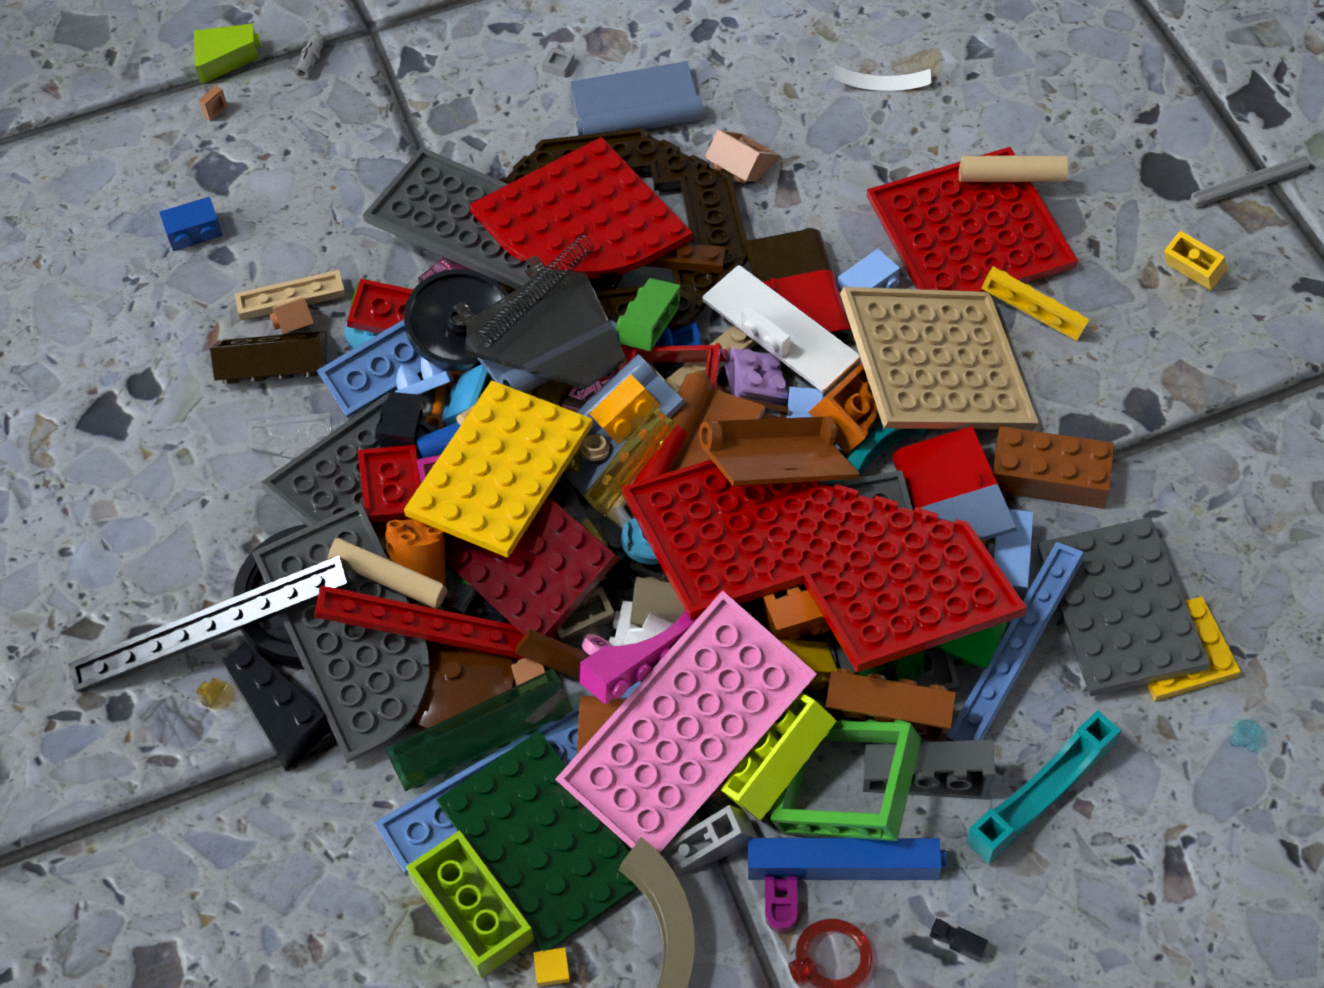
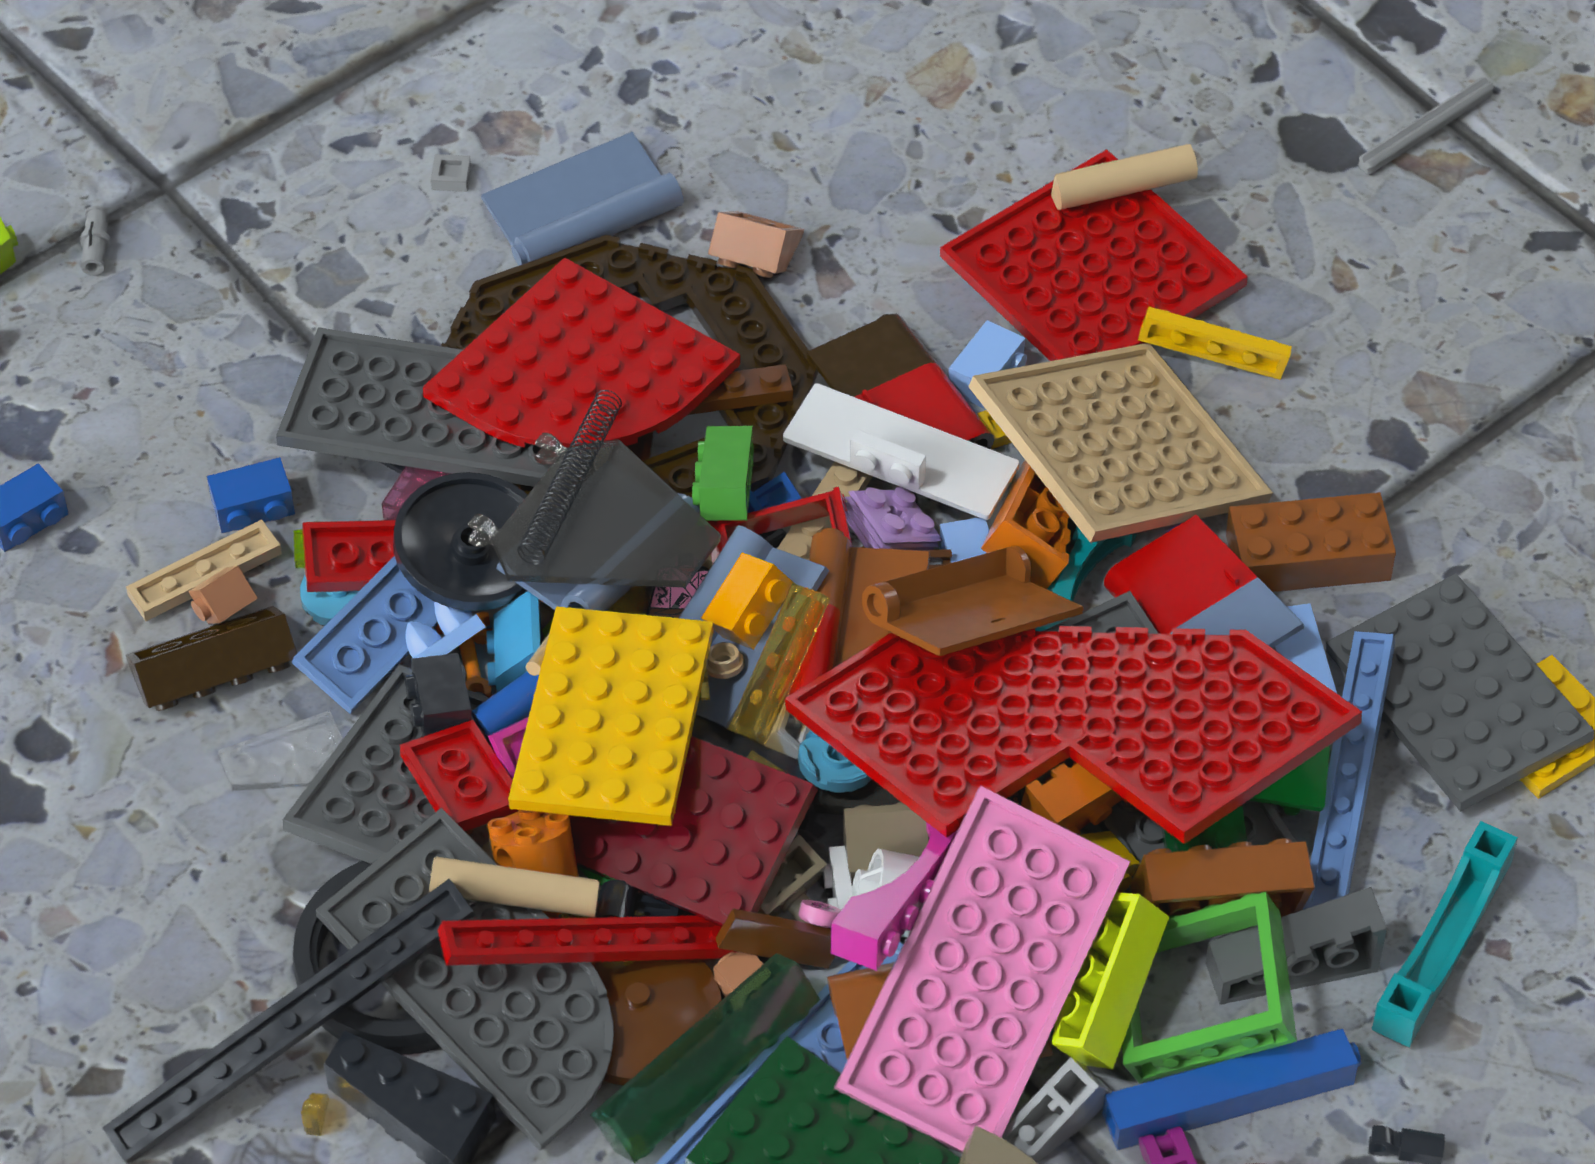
camera: 20 degrees left, 5 degrees down
(339, 251) = (251, 495): none -> blue brick
(883, 83) = (906, 102): white sticker -> none
(1195, 260) = (1396, 240): yellow brick -> none

